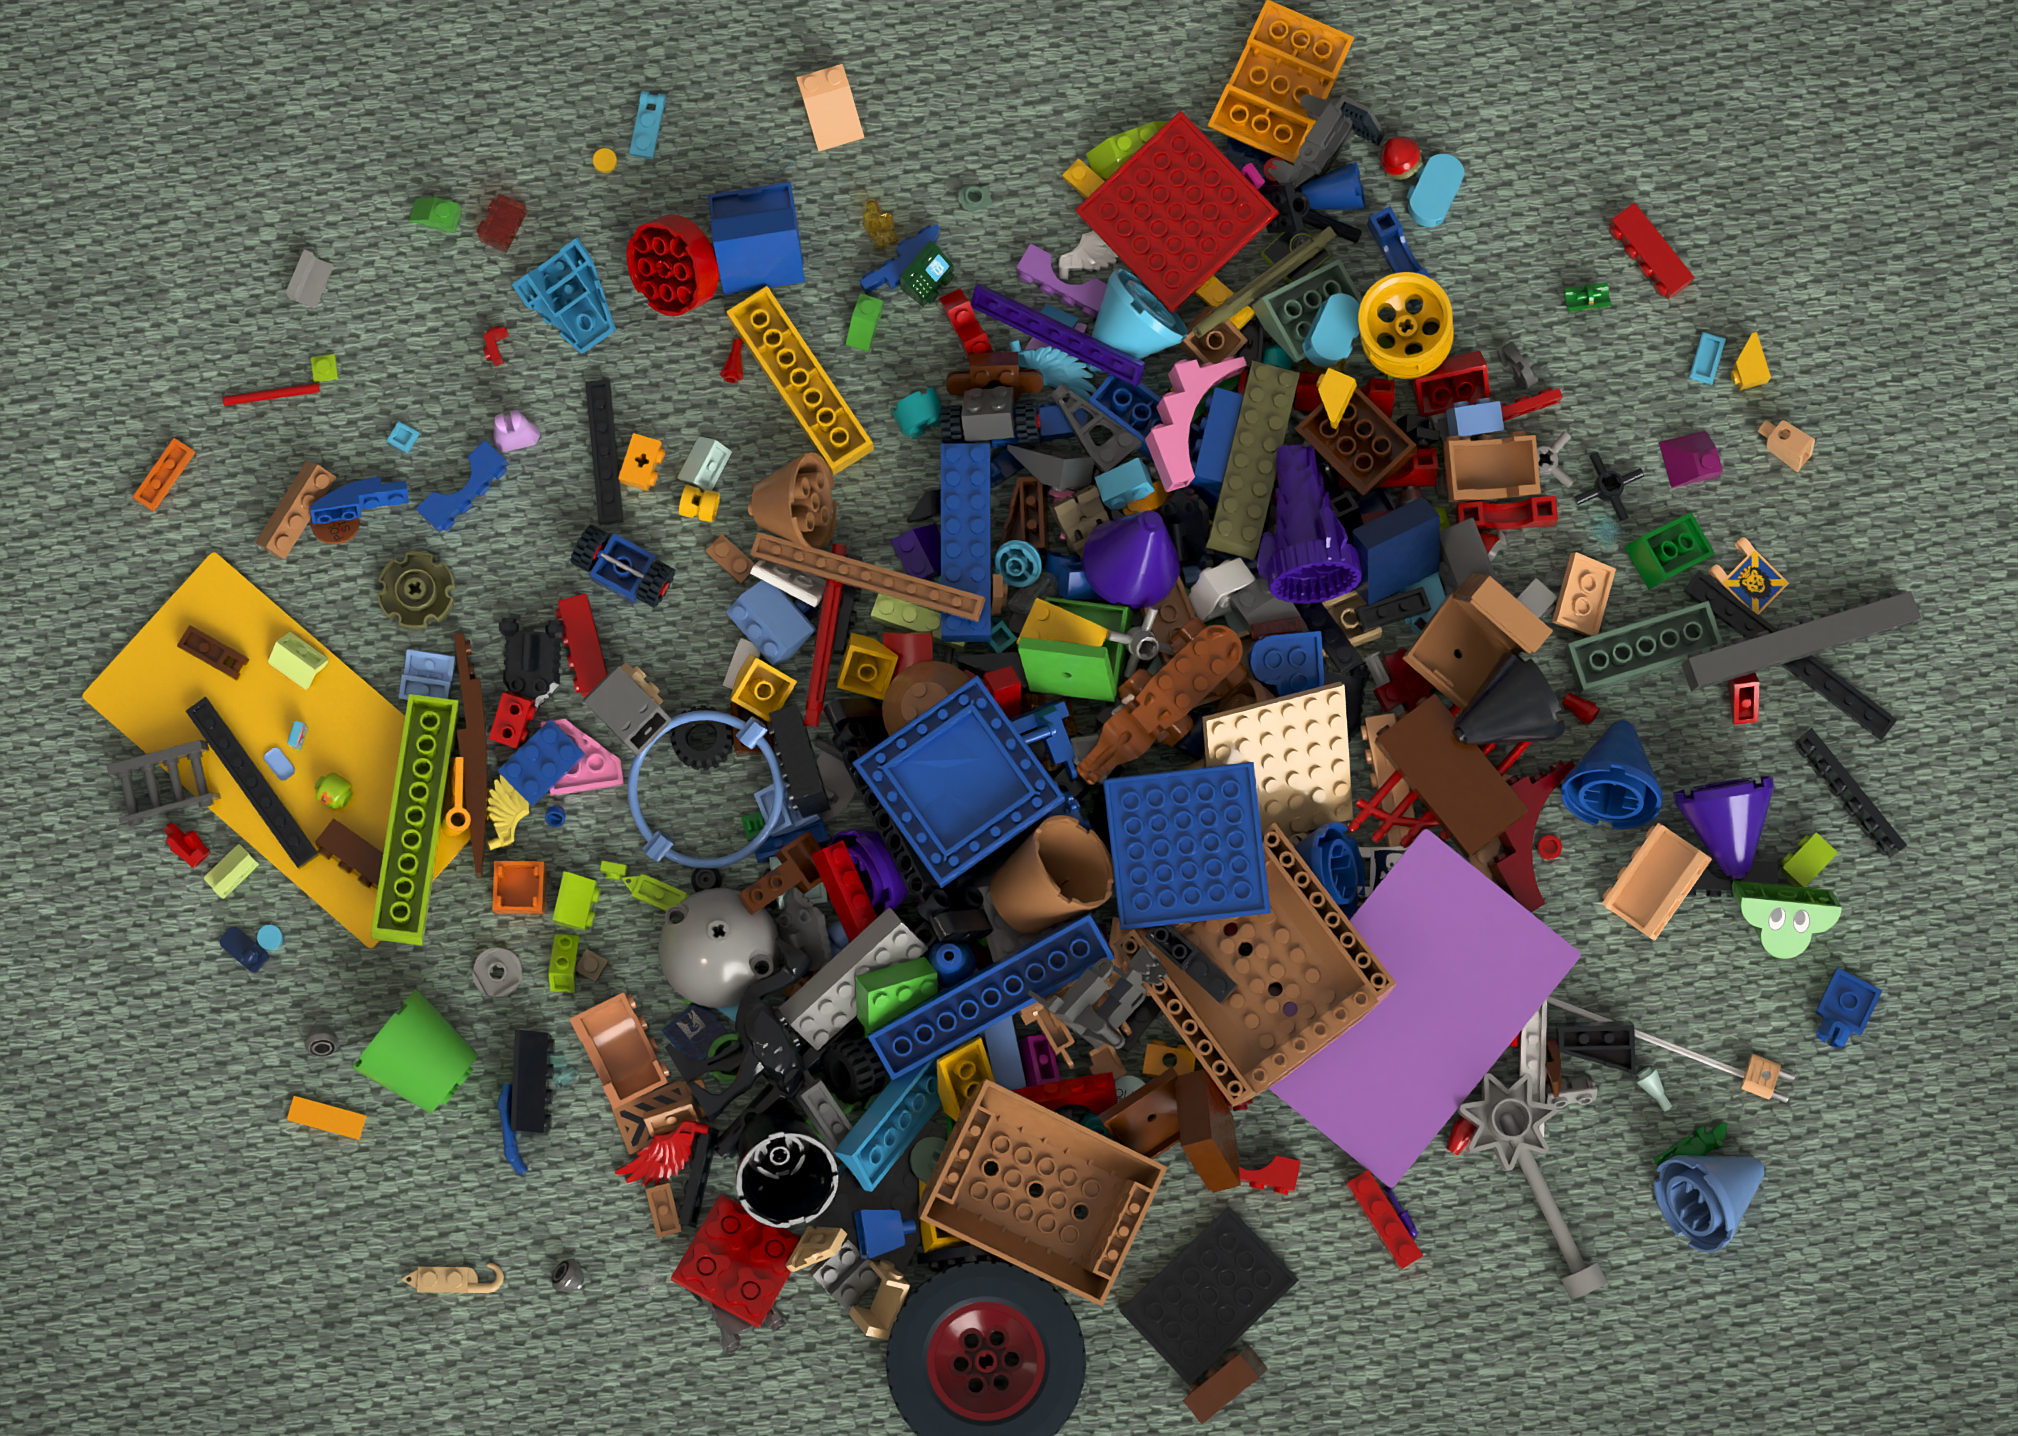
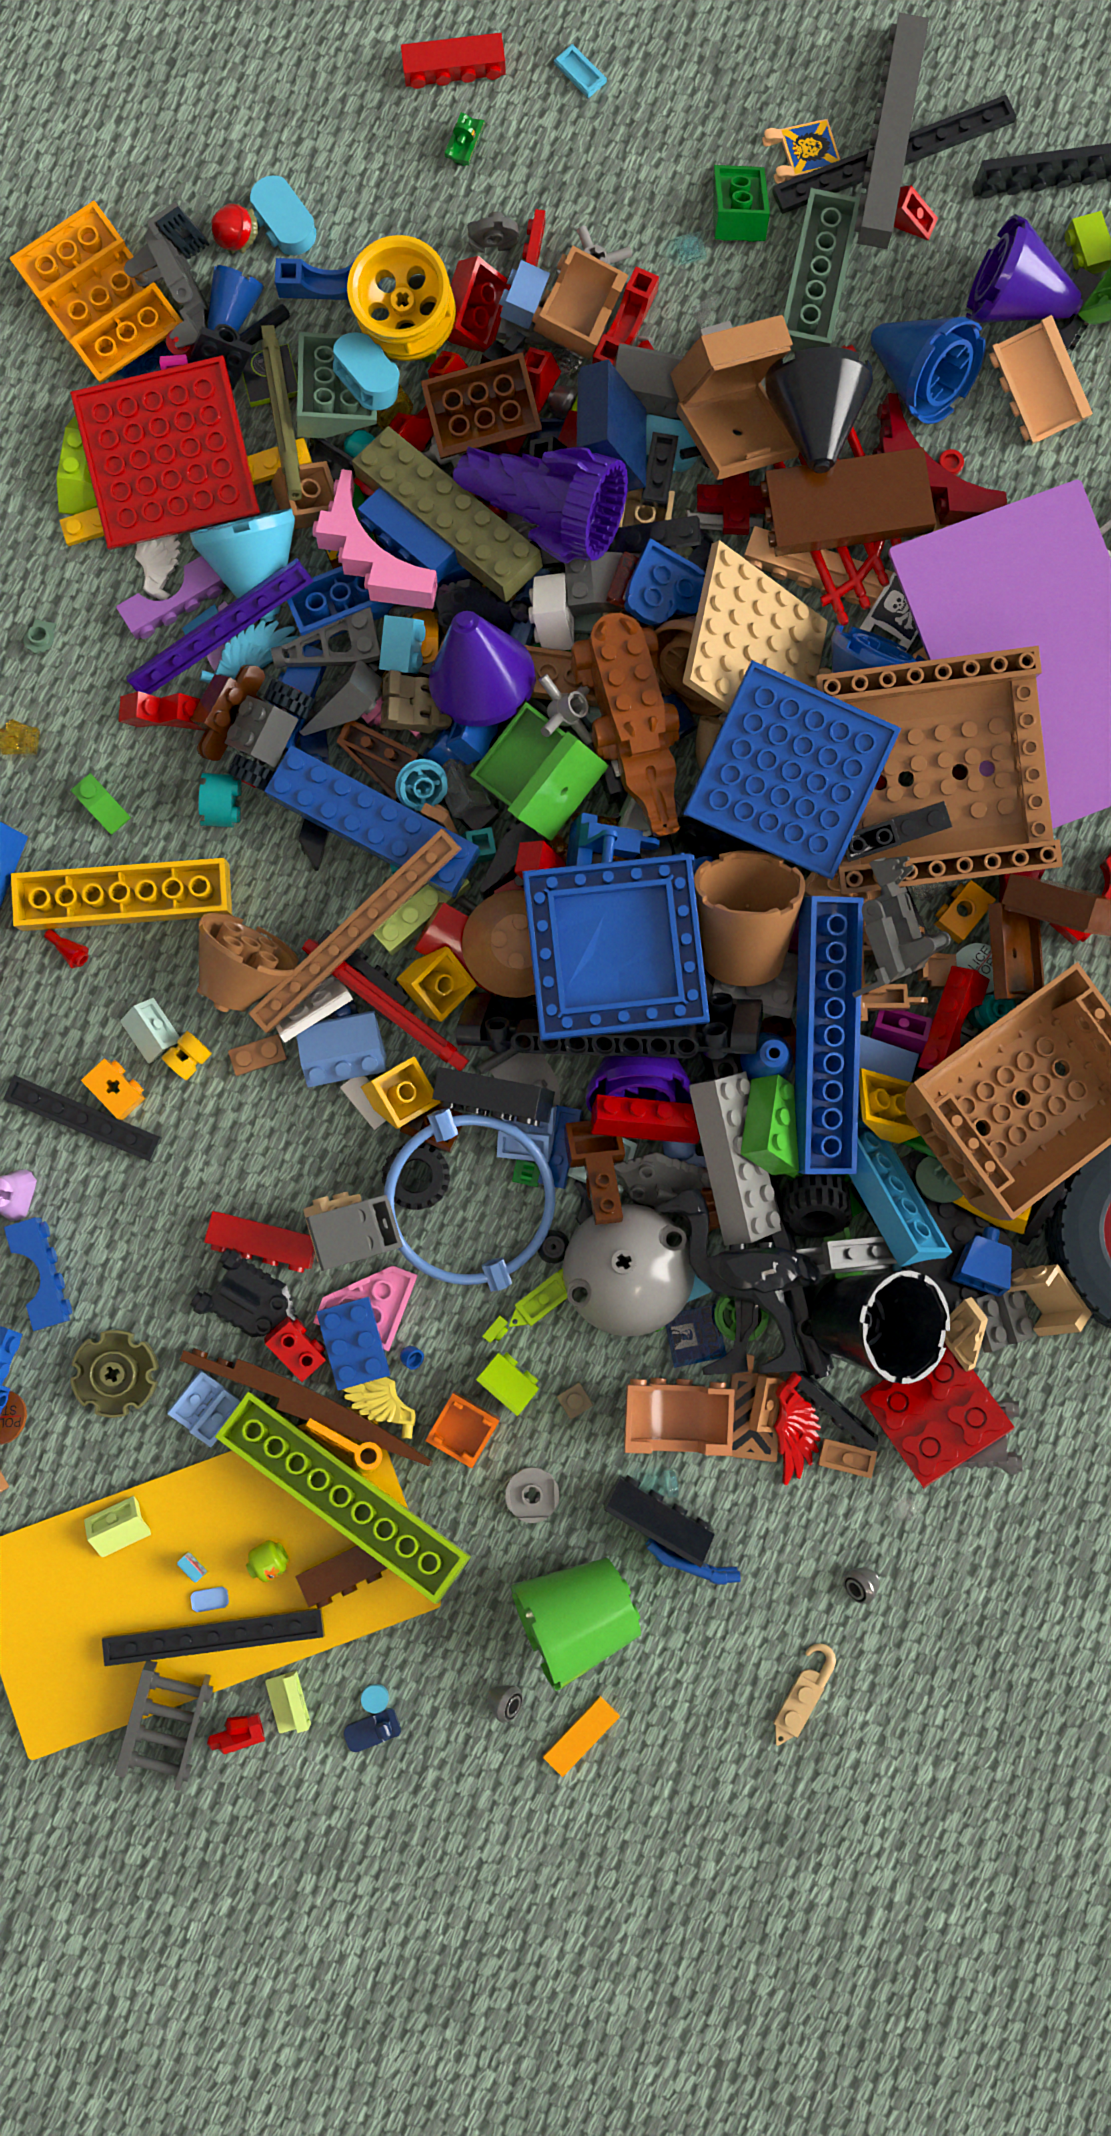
camera: 65 degrees left, 5 degrees up
(212, 652) = (60, 1608): reddish brown plate -> none
(563, 963) = (558, 1425): lime bracket -> none
(622, 566) = (206, 1161): brick -> none
(893, 268) = (61, 726): blue slope -> none
(919, 552) = (354, 874): dark purple slope -> none
(927, 275) = (89, 719): dark green slope -> none
(1055, 623) = (509, 775): yellow slope -> none
(1335, 393) = (431, 399): yellow slope -> none
(1583, 595) = (737, 295): light nougat plate -> none
(1611, 477) = (648, 228): black bar -> none
(1690, 459) = (666, 135): magenta slope -> none
(1751, 365) = (609, 33): yellow slope -> none
(1794, 449) = (702, 40): light nougat torso -> none

